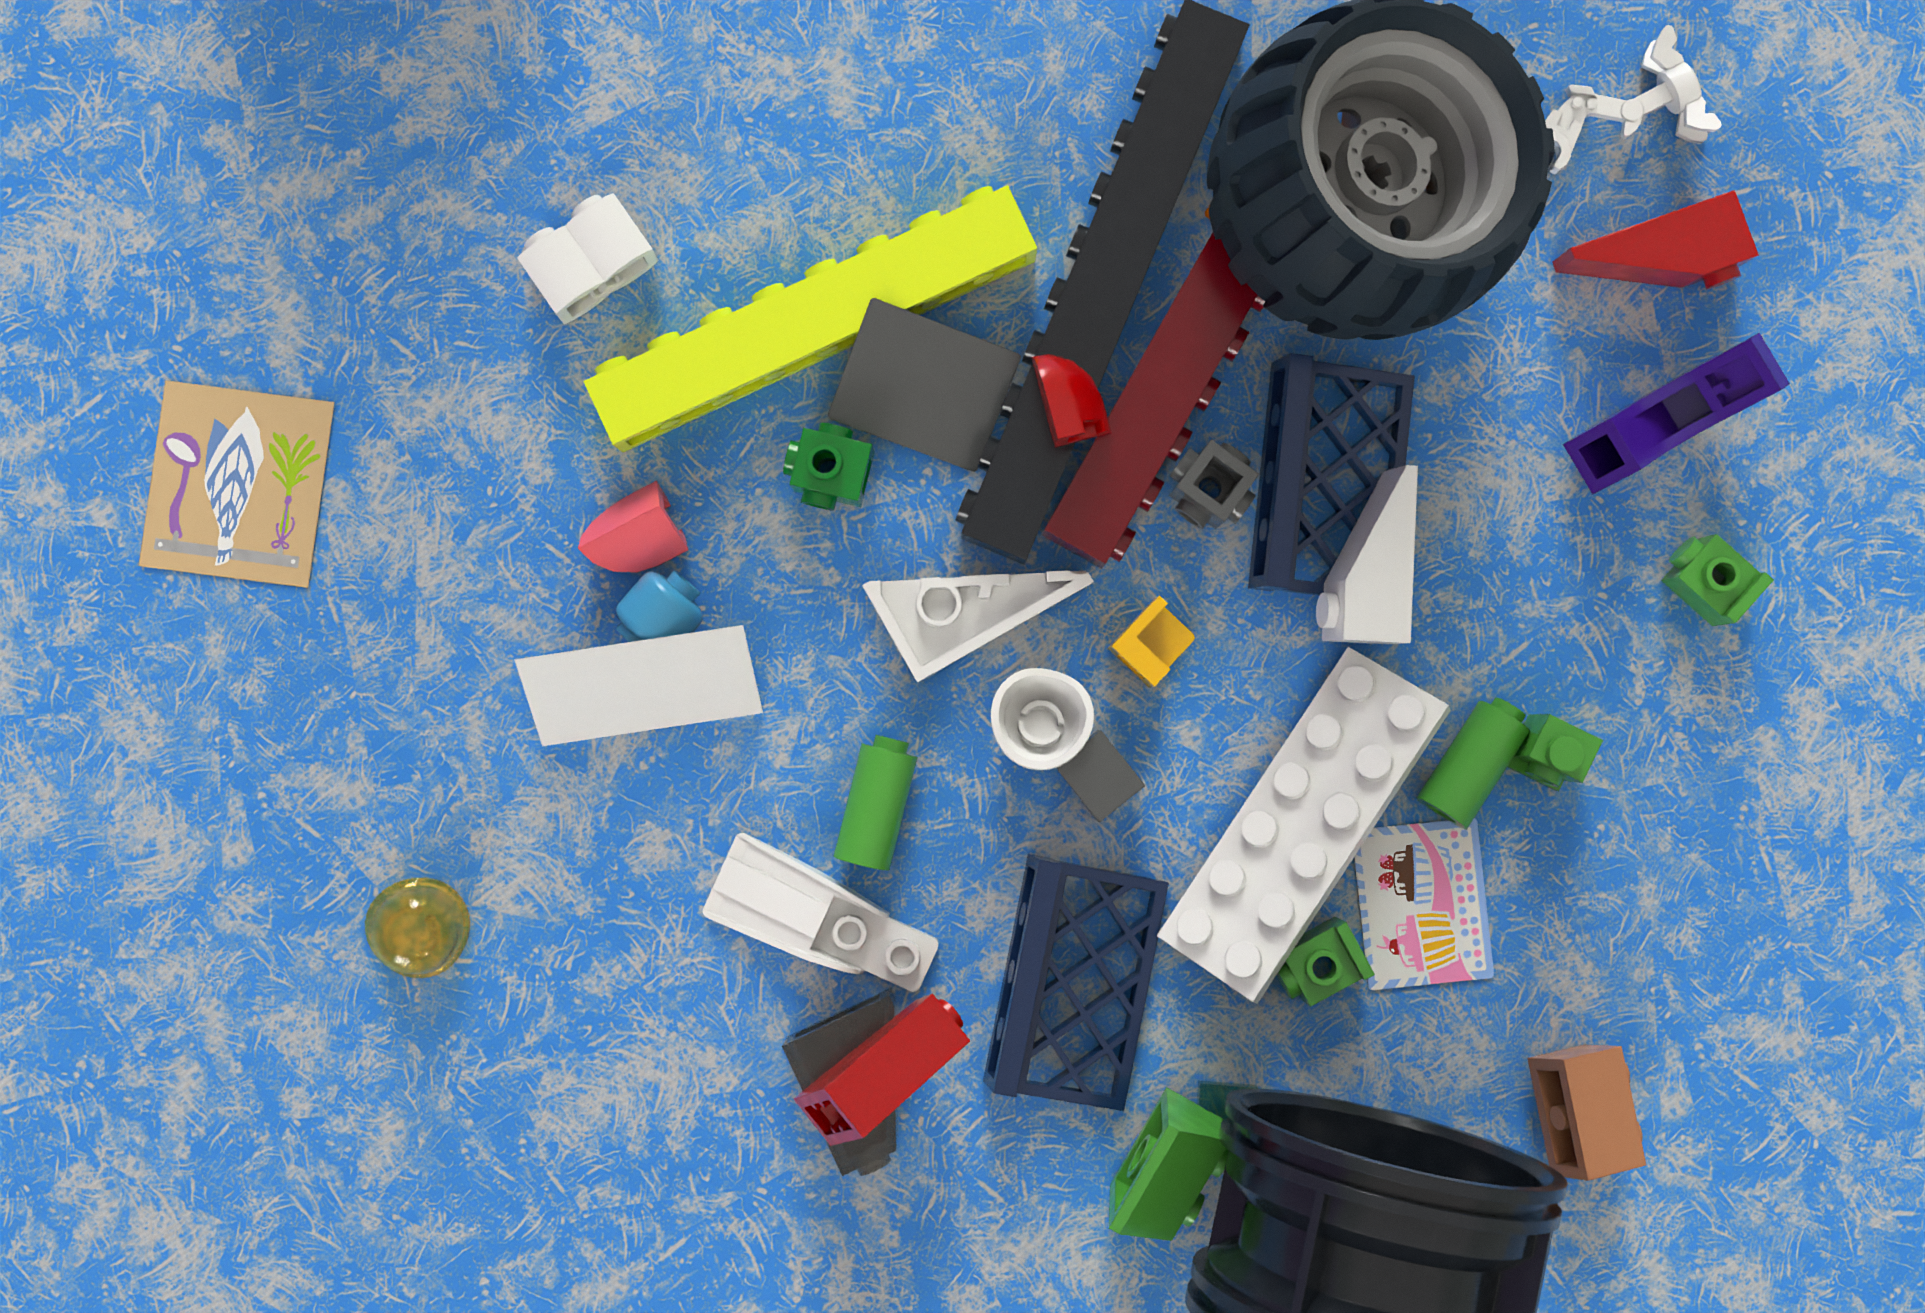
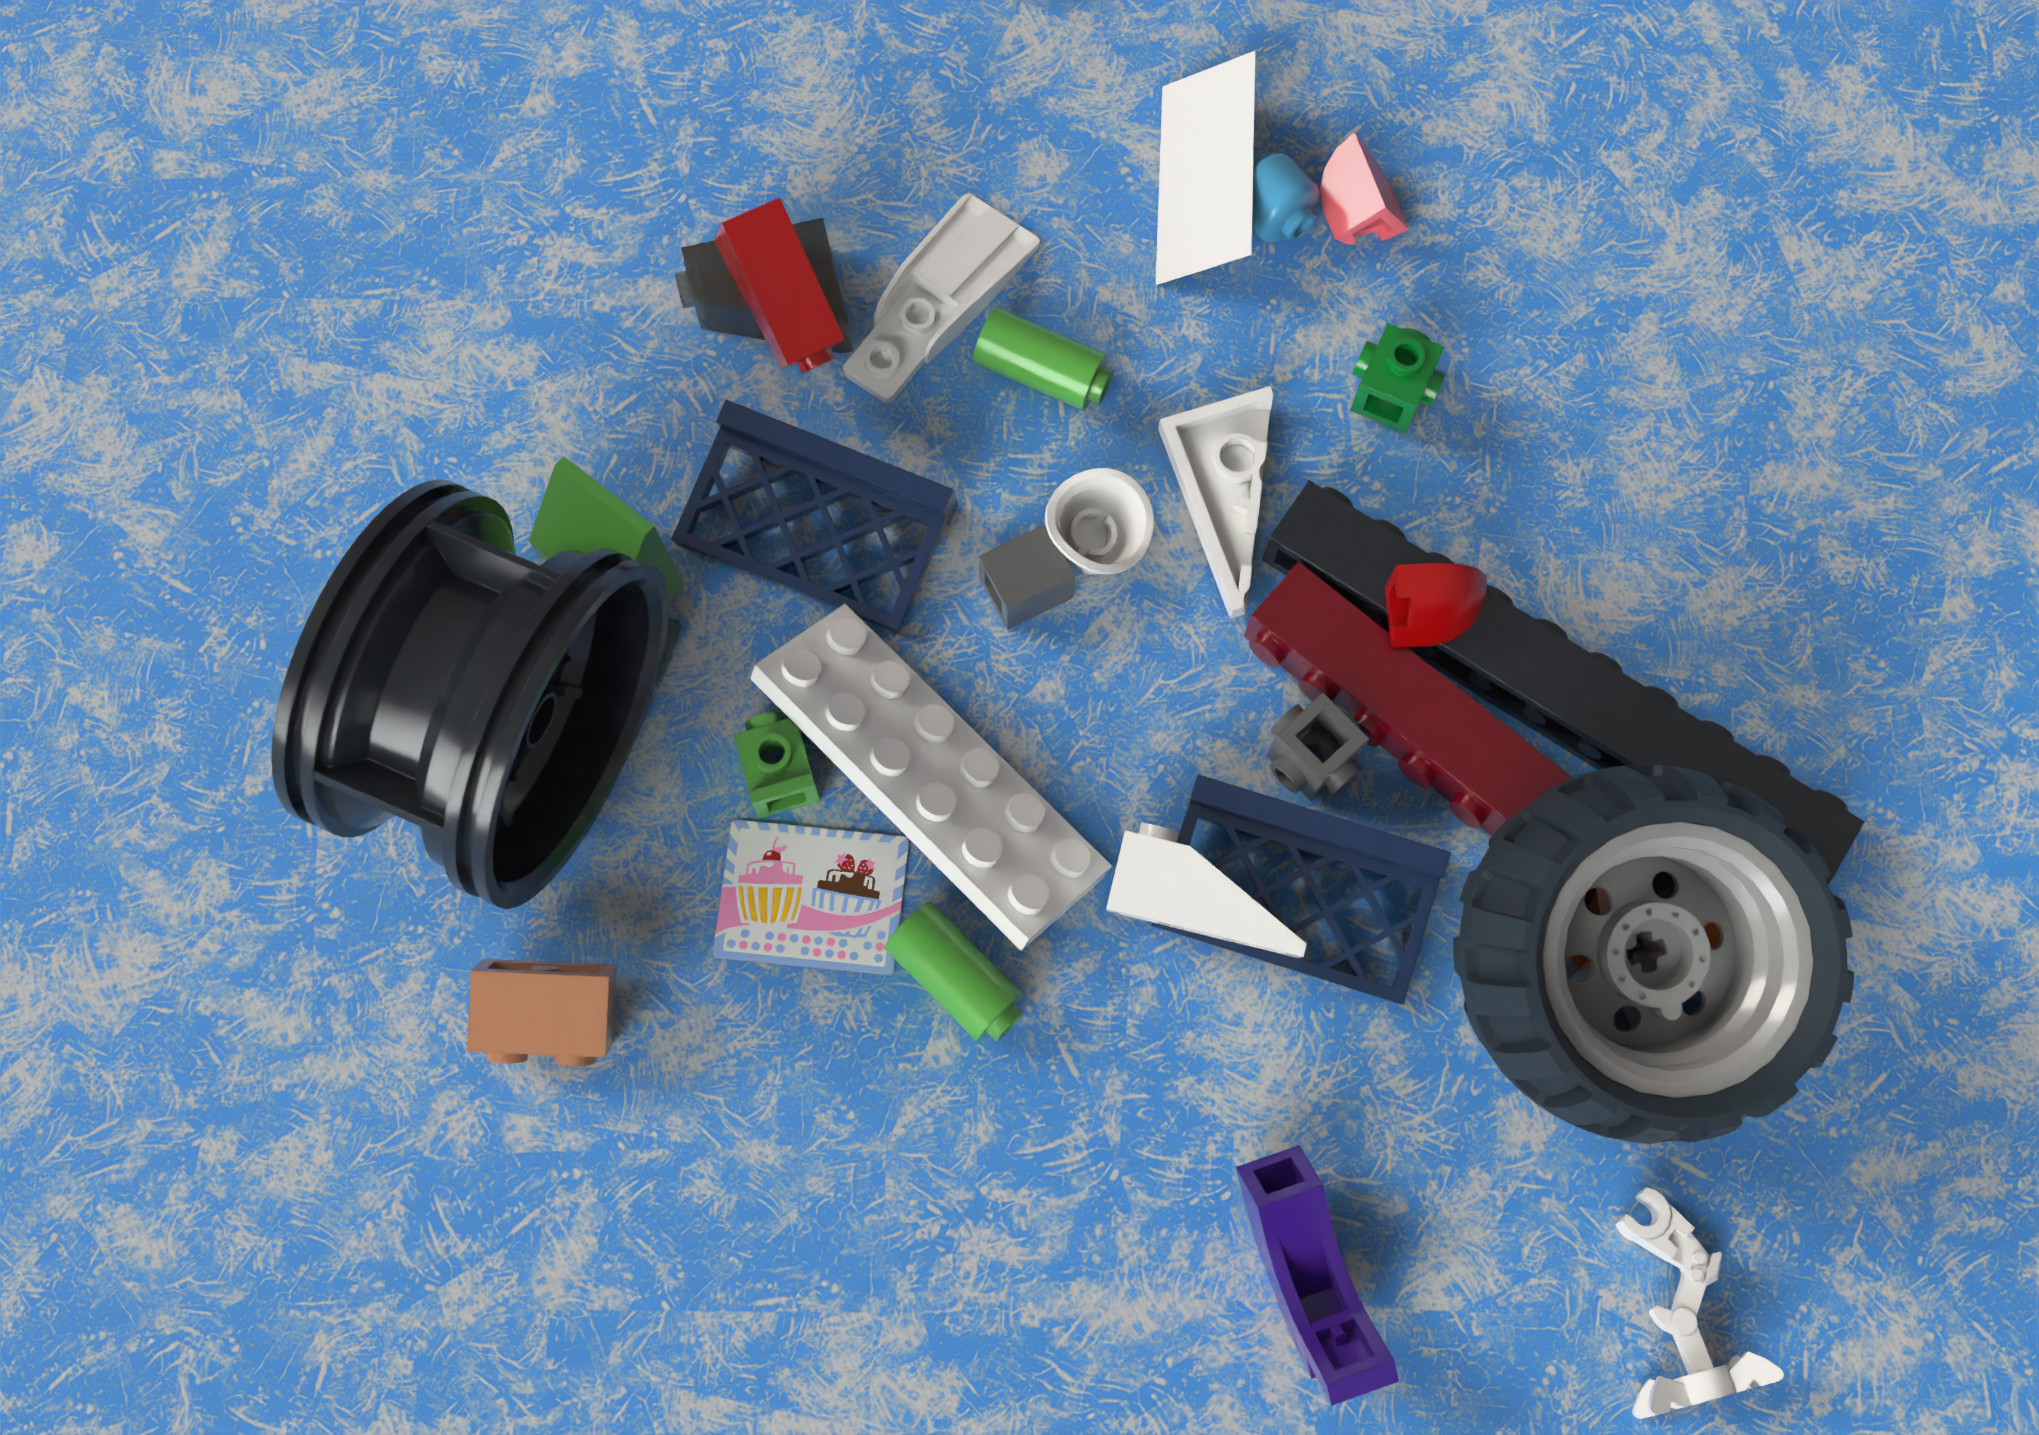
camera: 100 degrees right, 15 degrees down
(587, 257) = (1645, 200): white brick -> none
(809, 319) = (1557, 400): neon yellow brick -> none
(923, 385) = (1472, 480): dark grey sticker -> none
(1152, 642) = (1157, 660): yellow panel -> none
(1555, 752) = (950, 1061): bright green brick -> none
(1671, 250) = (1512, 1336): red slope -> none
(1694, 583) = (1085, 1303): bright green brick -> none

